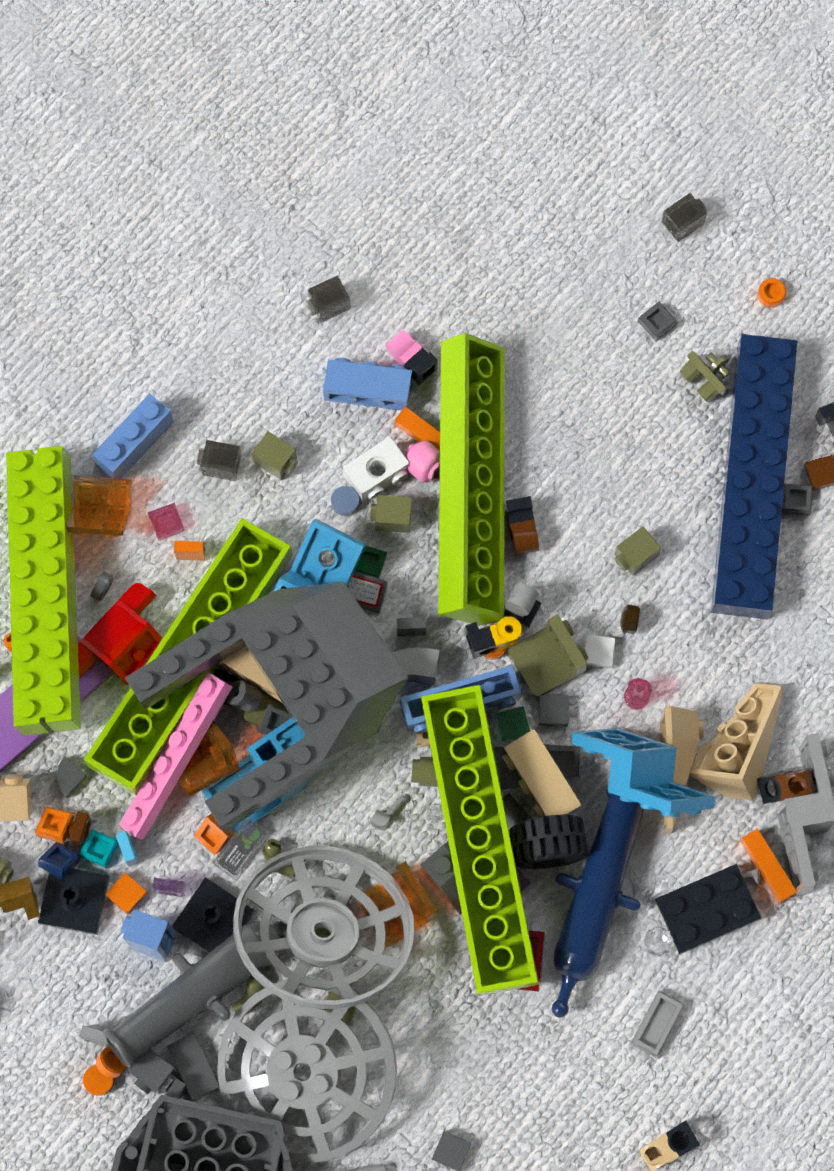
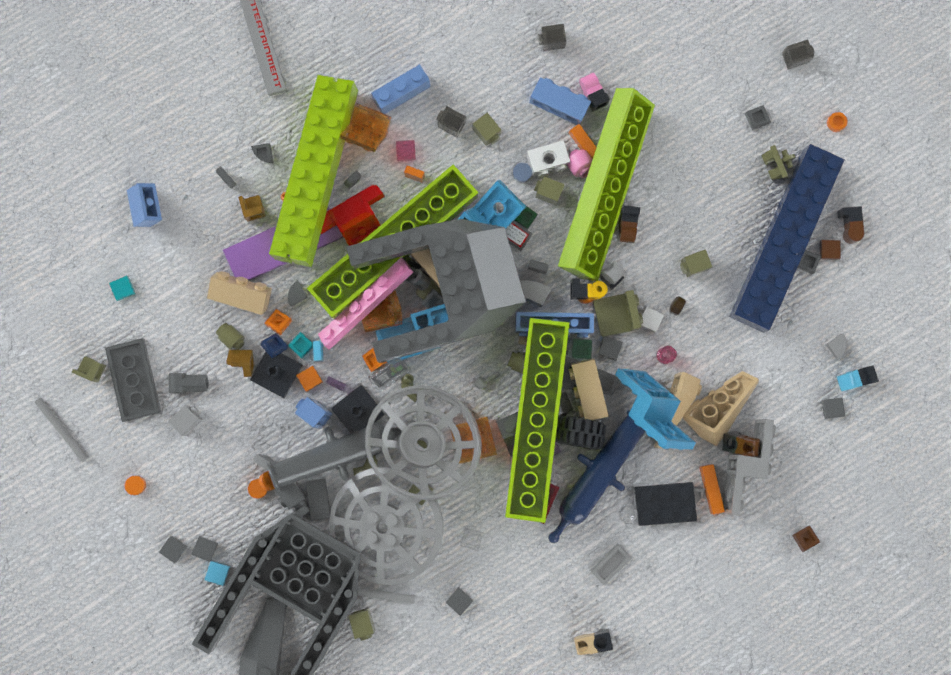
camera: 10 degrees right, 10 degrees up
(80, 828) = (293, 329): reddish brown tile -> none

